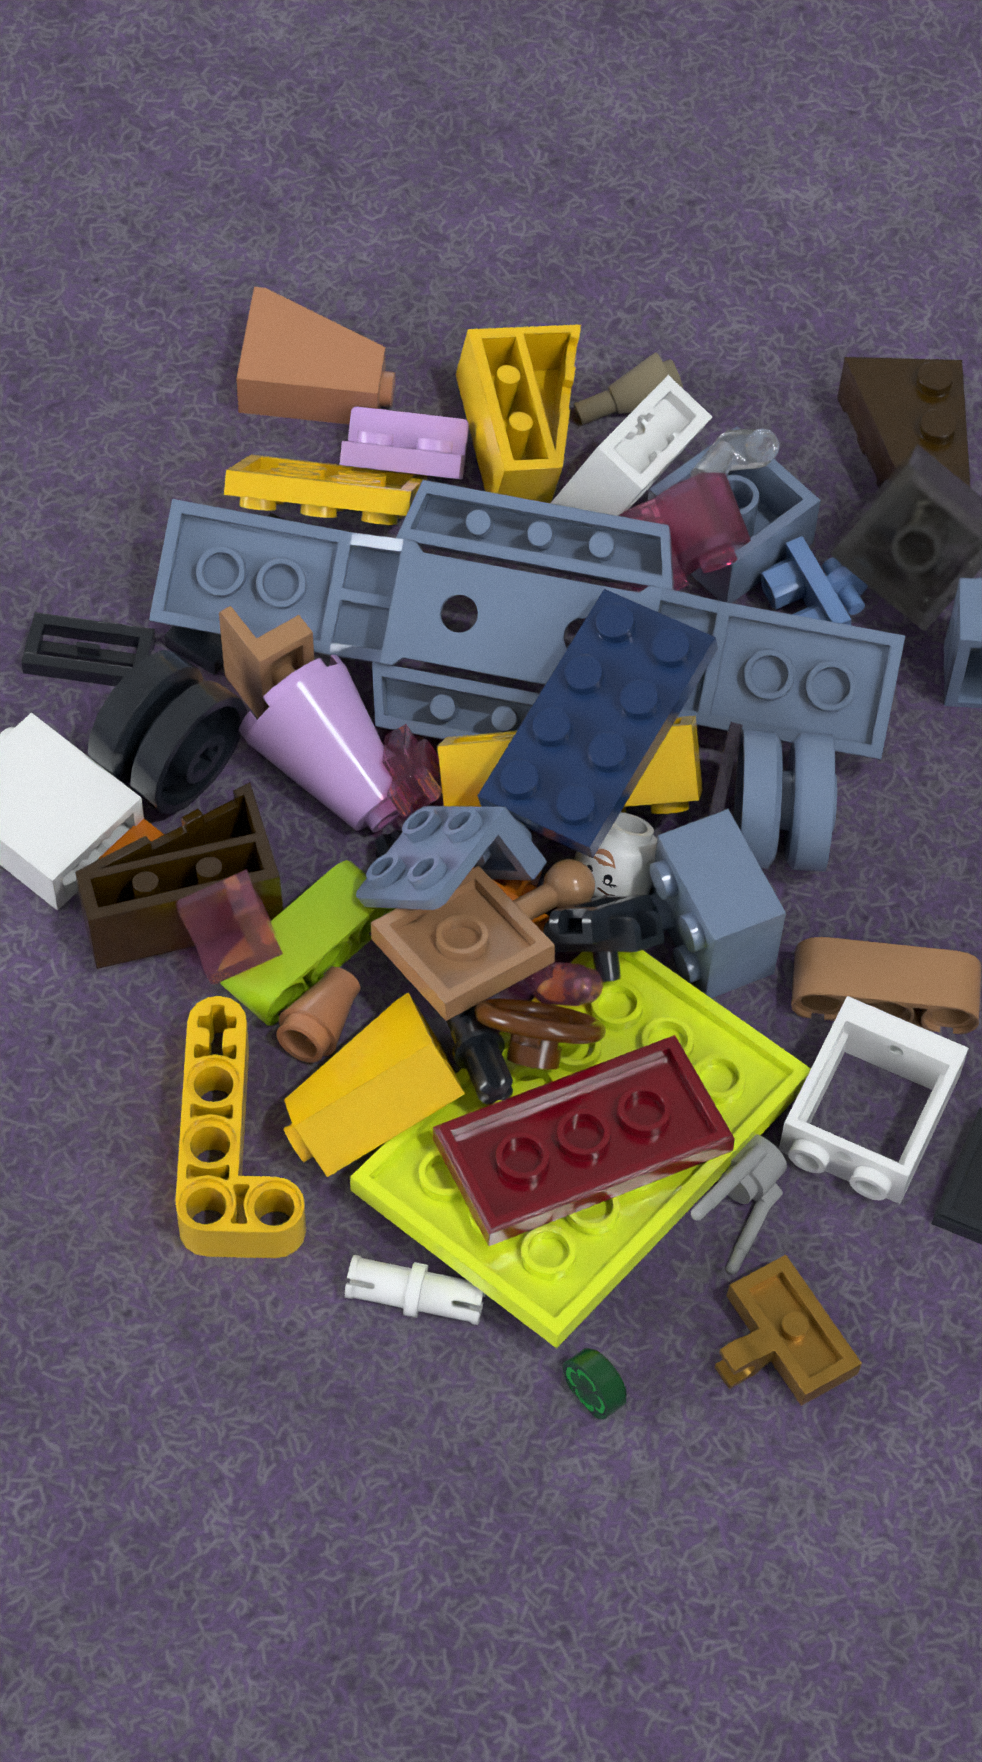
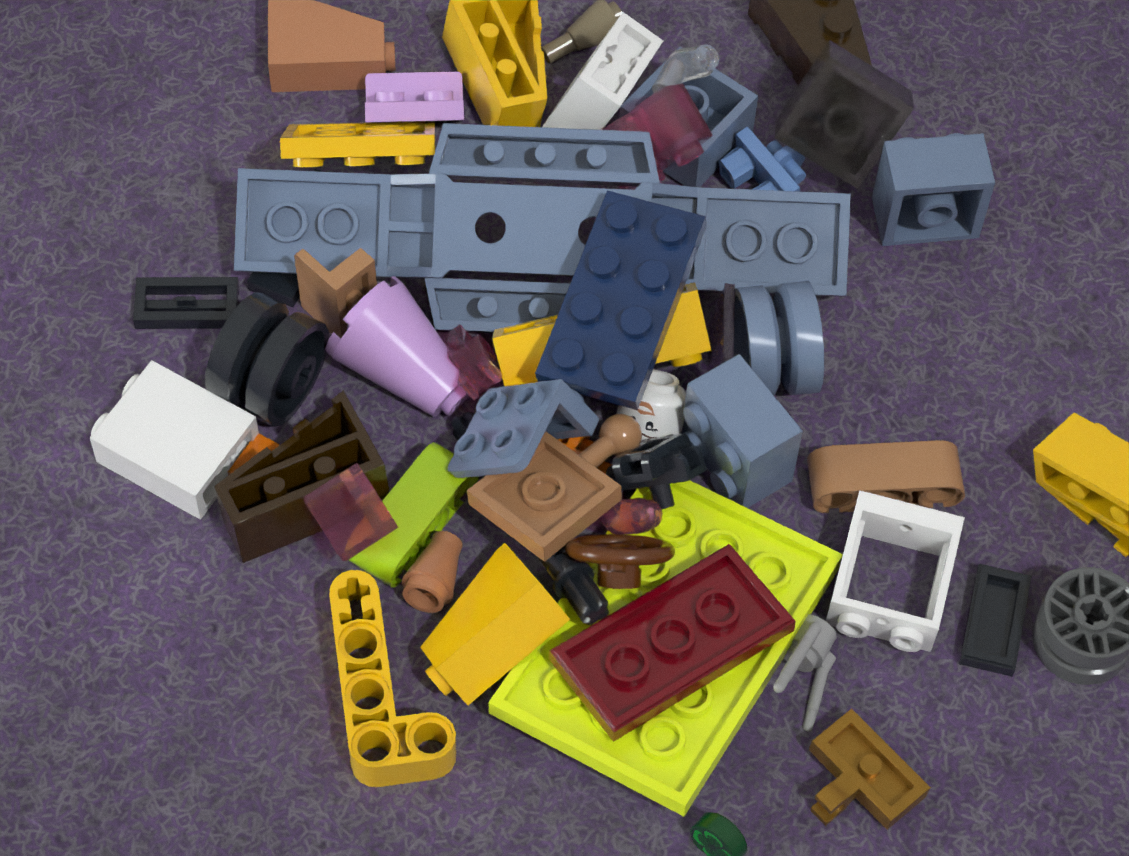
camera: 10 degrees left, 0 degrees up
(414, 1289) = (556, 786): white pin -> none

